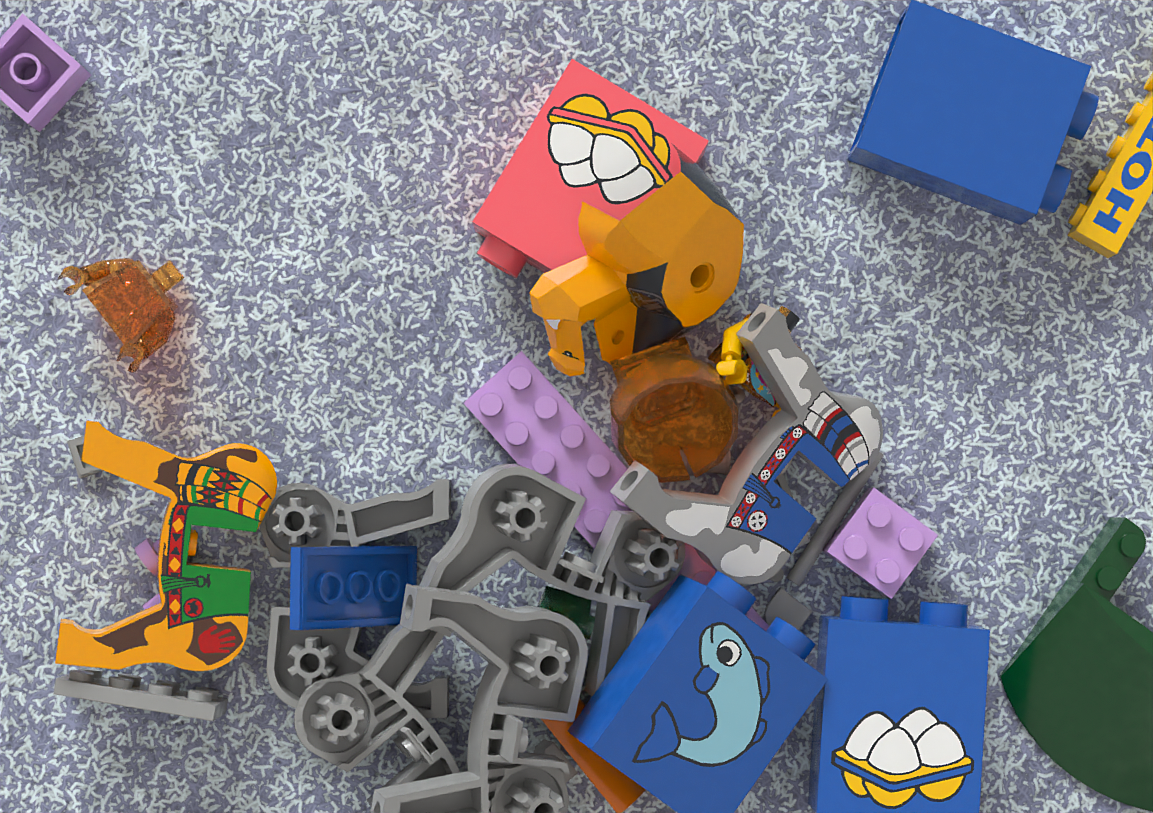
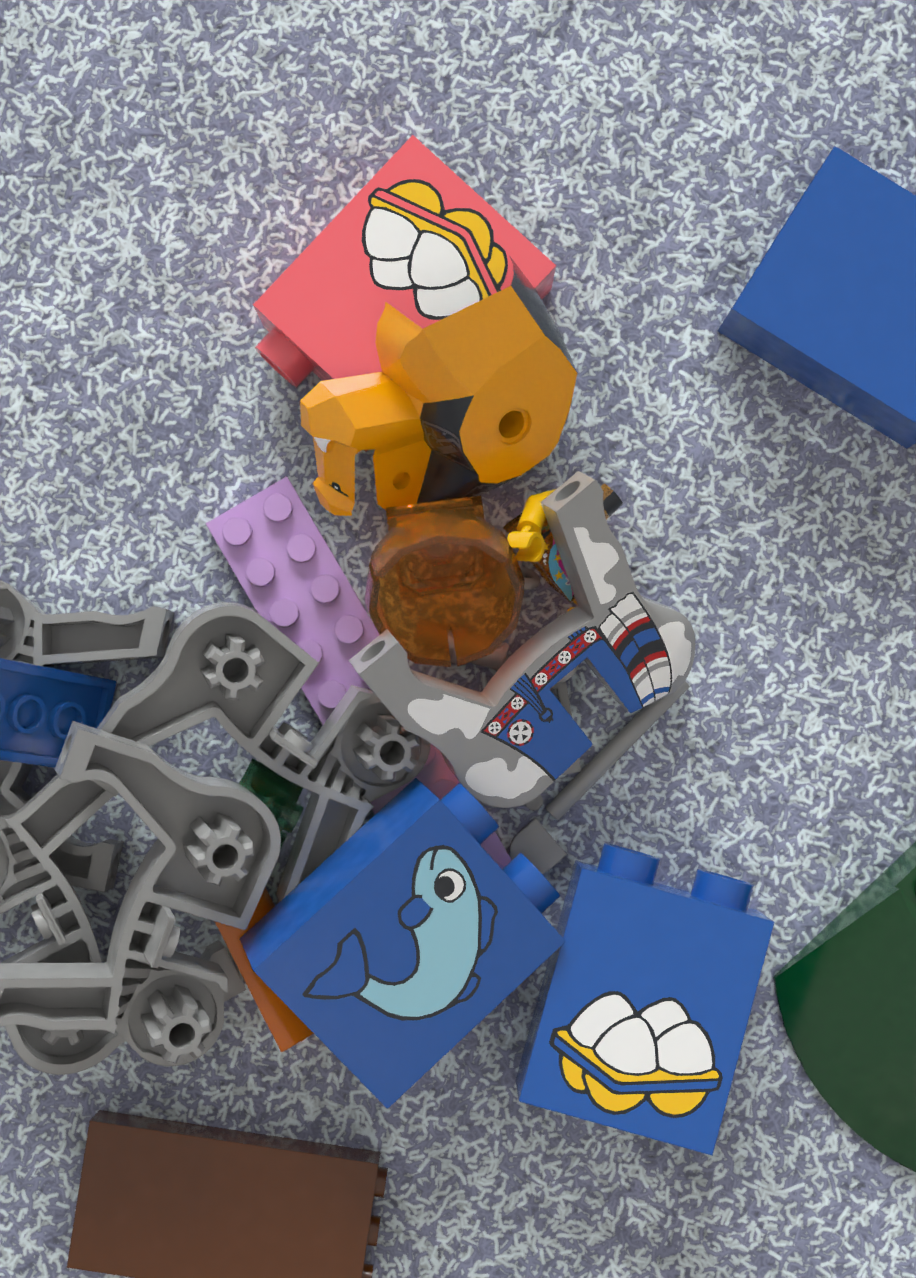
camera: 15 degrees right, 0 degrees up
(880, 542) = (664, 789): lavender brick -> none

